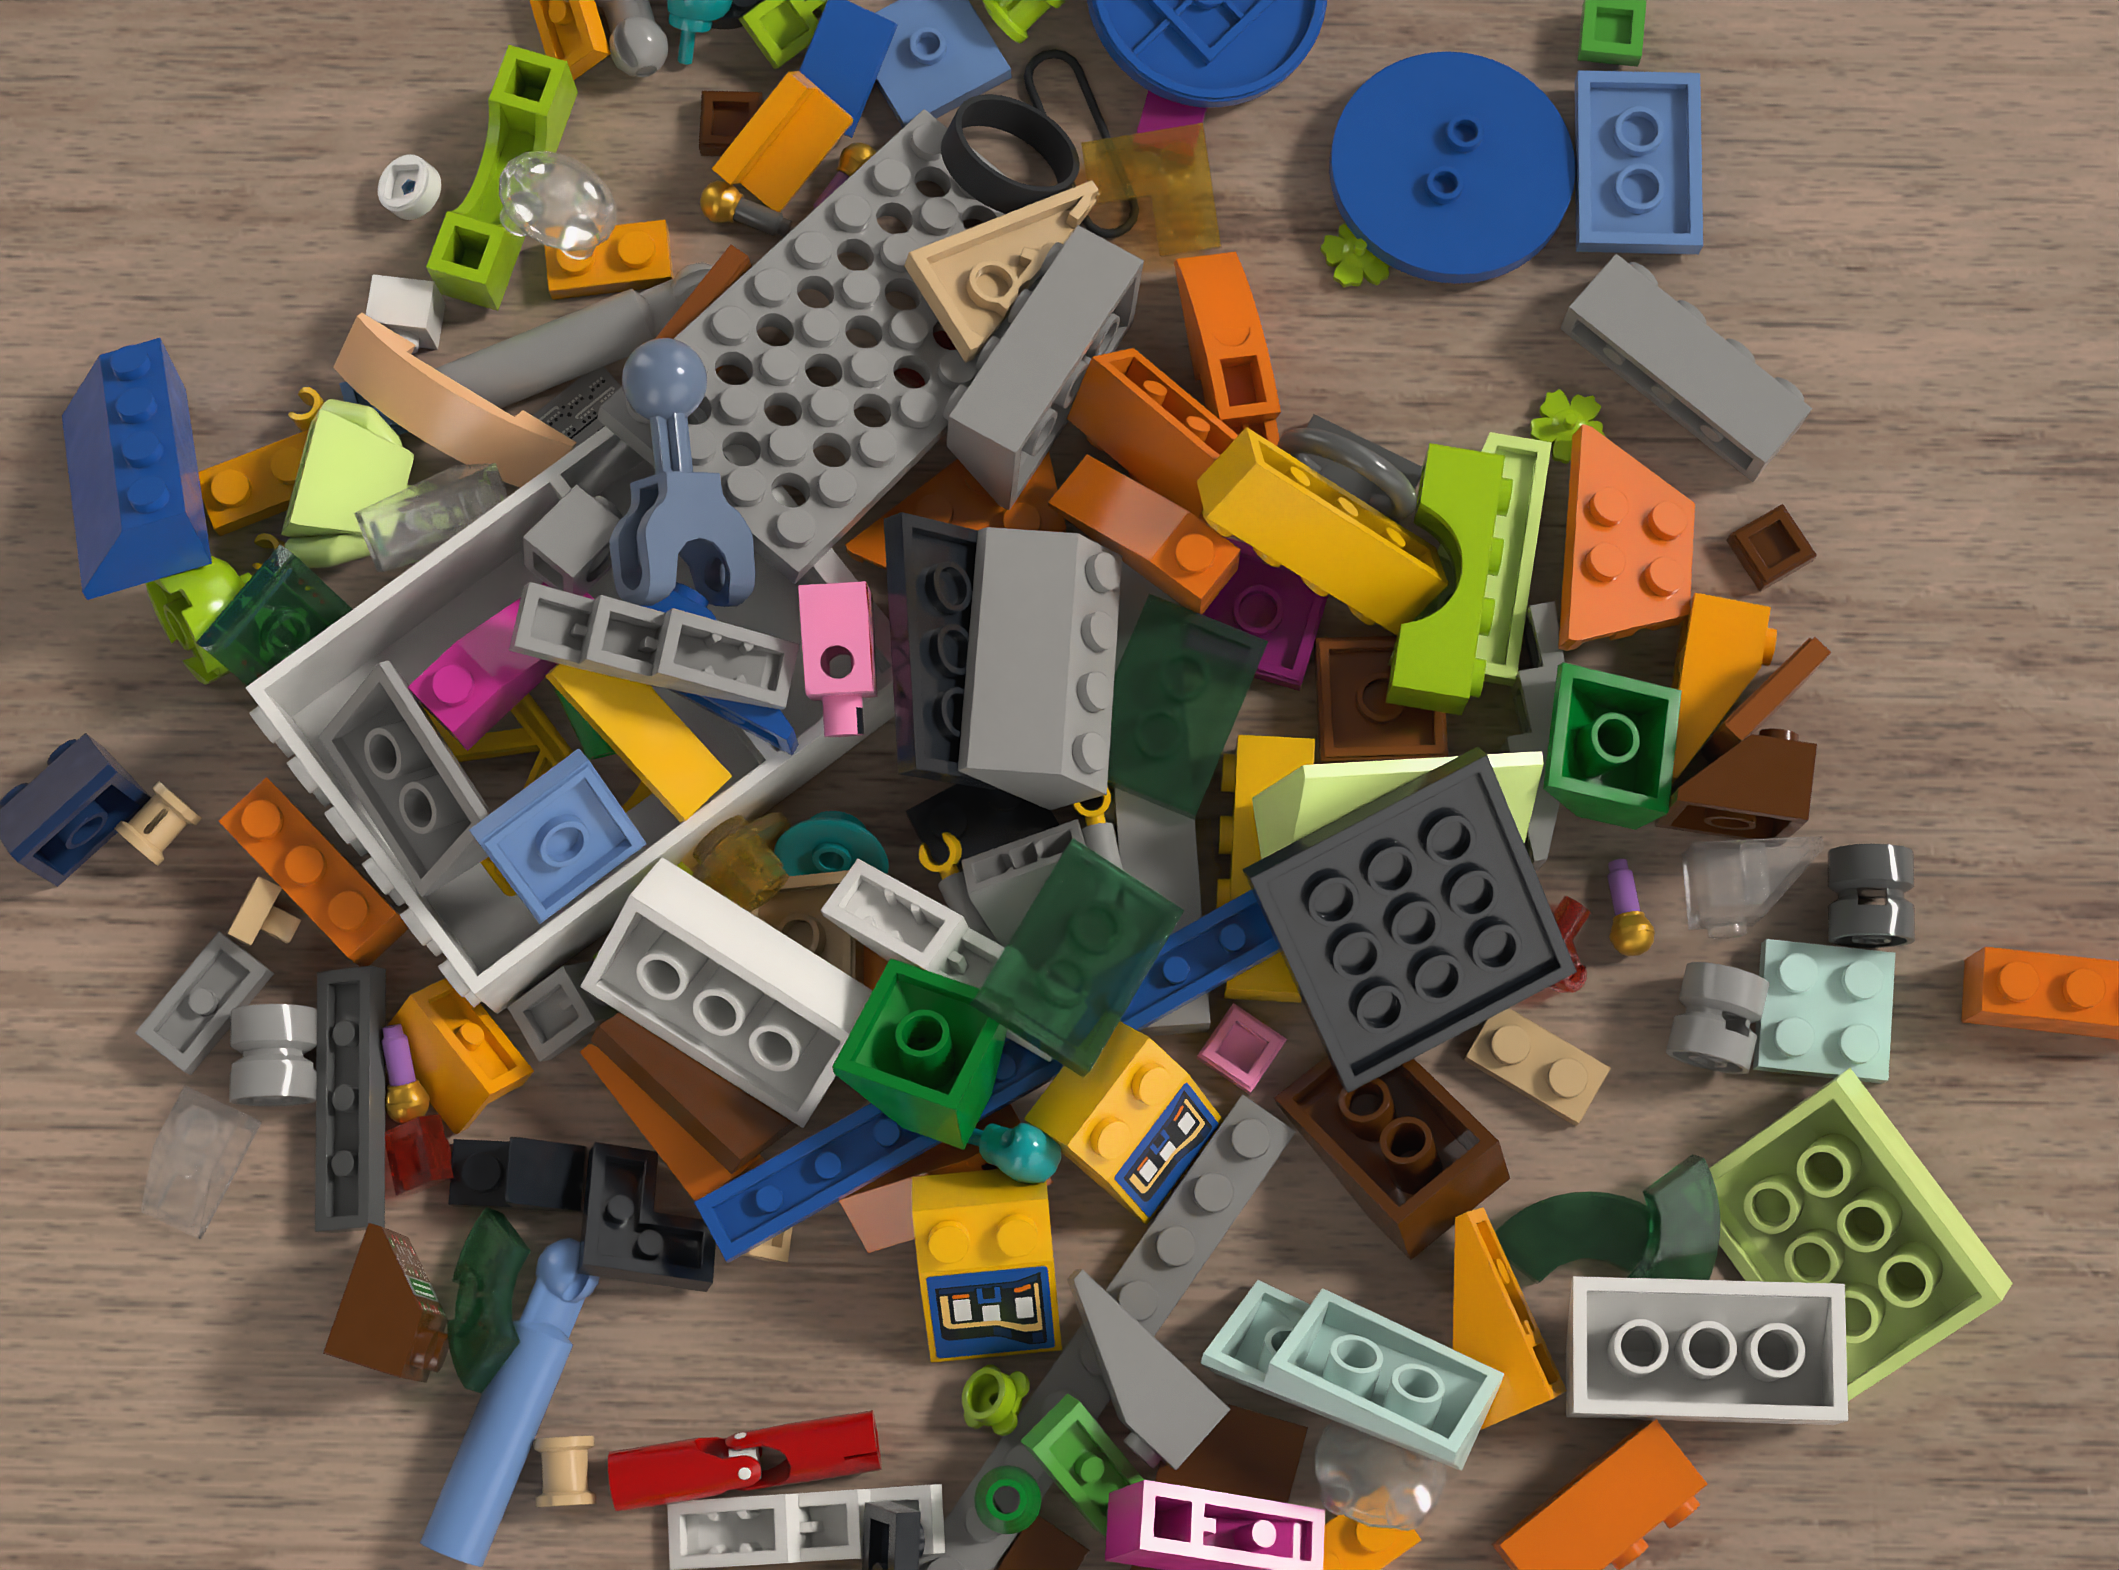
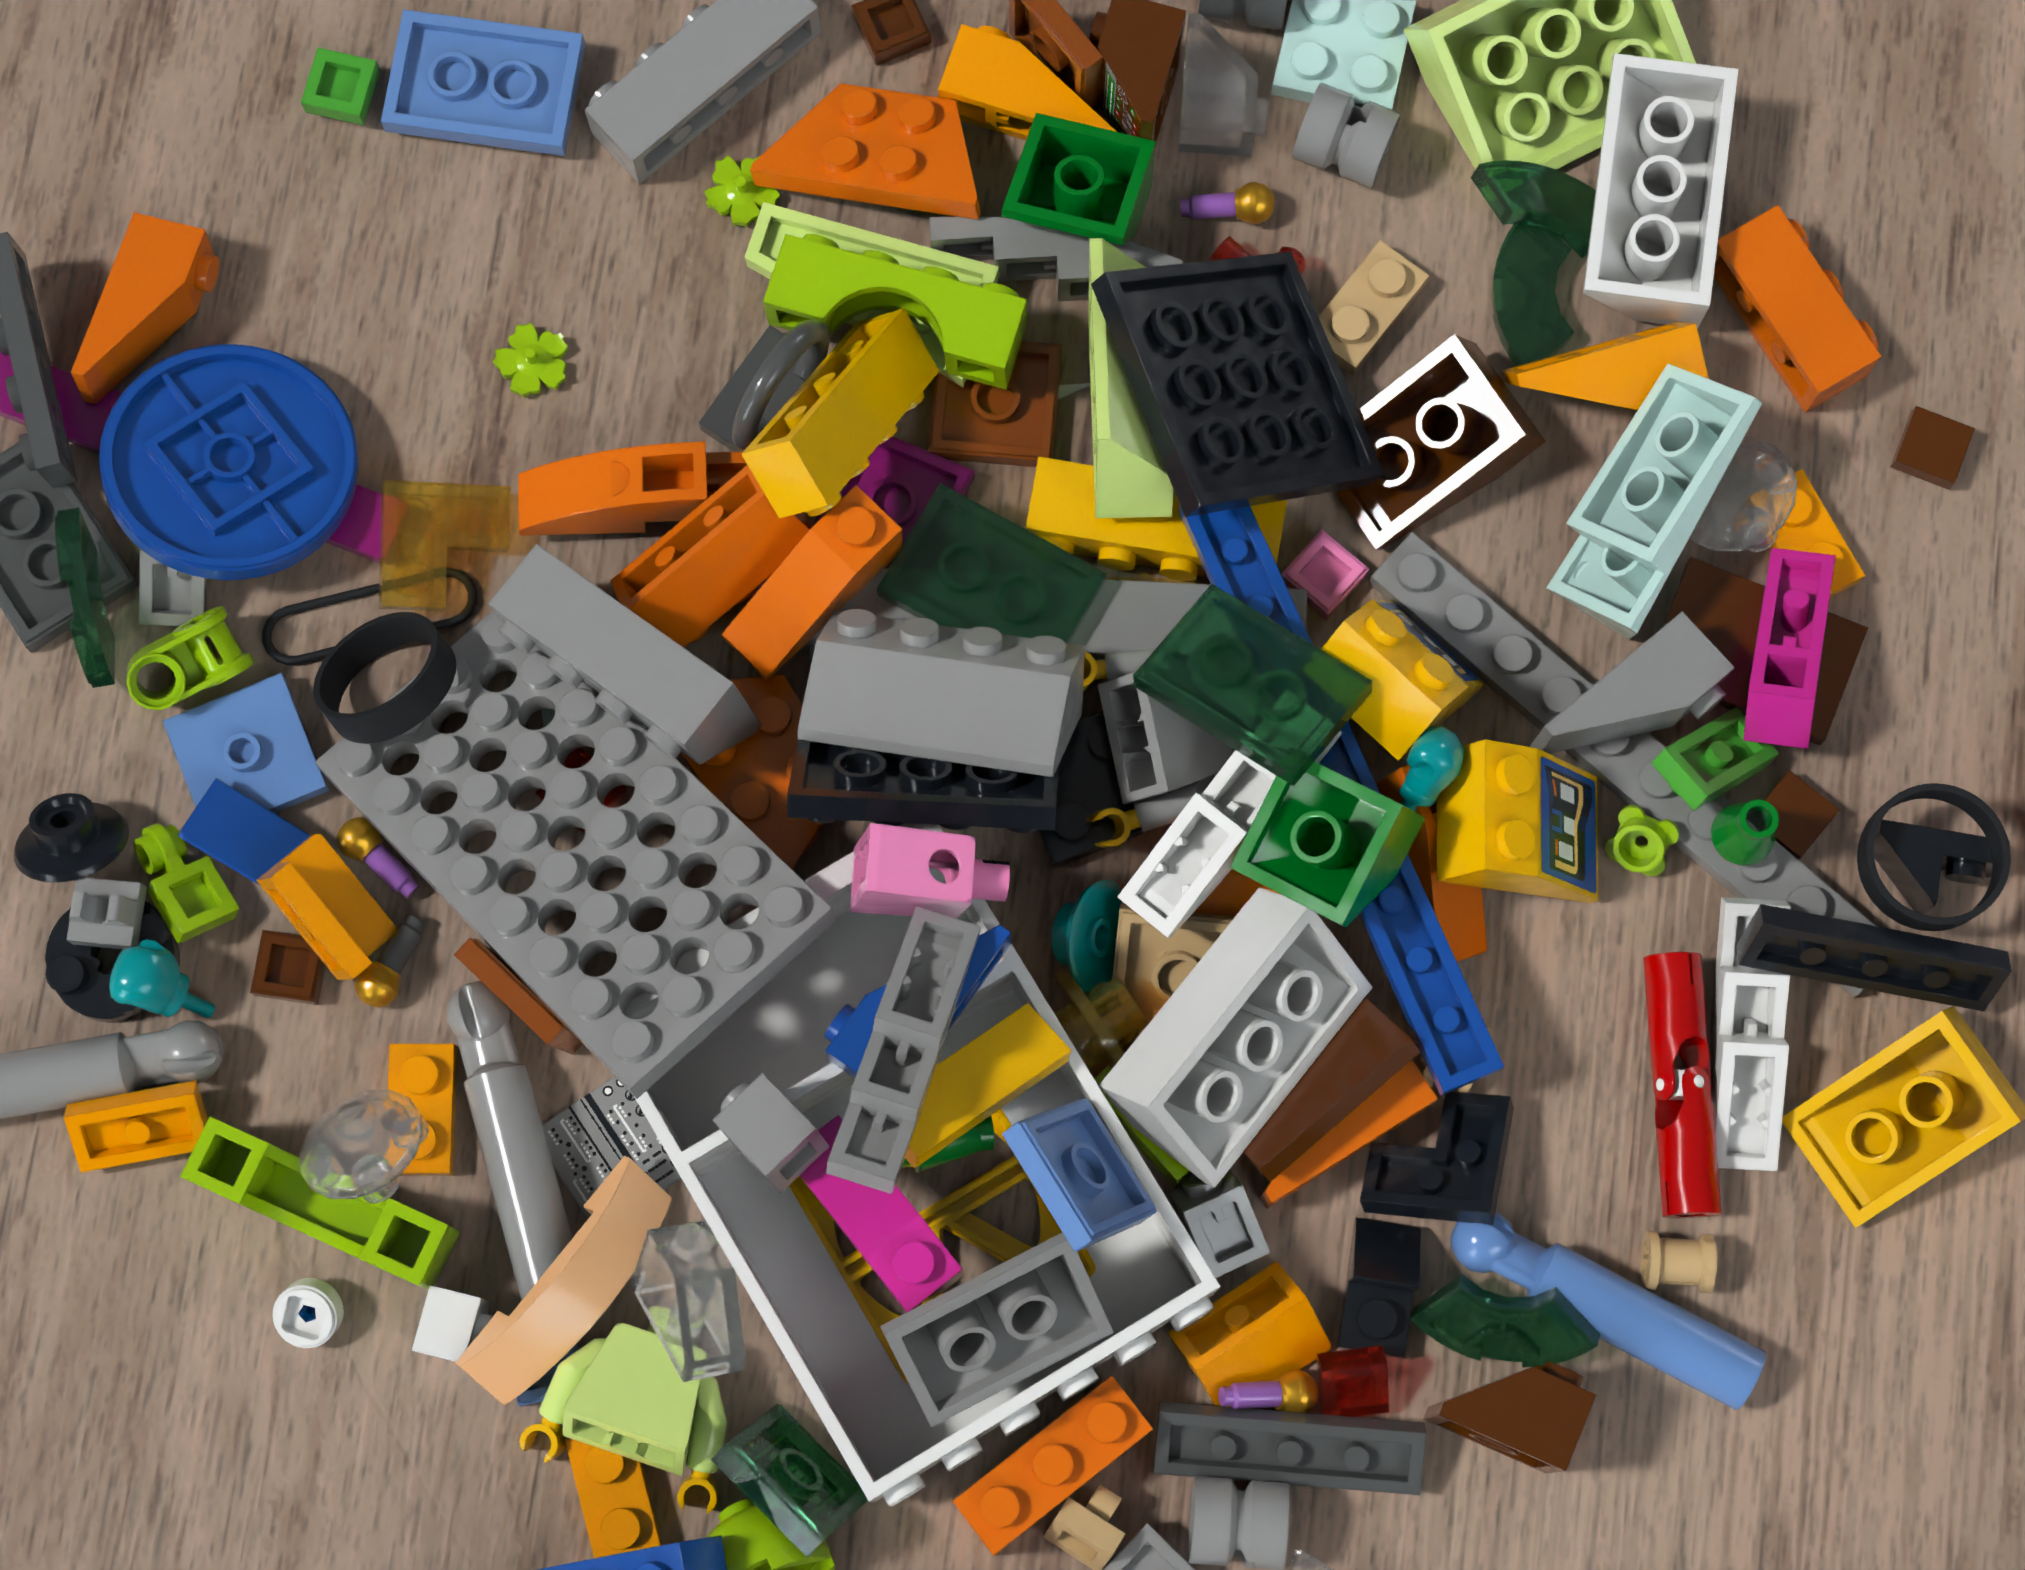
camera: 85 degrees left, 0 degrees up
(677, 507) = (761, 1016): sand blue piece -> none
(983, 270) = (516, 706): tan wing -> none
(1452, 167) = (459, 257): blue plate -> none

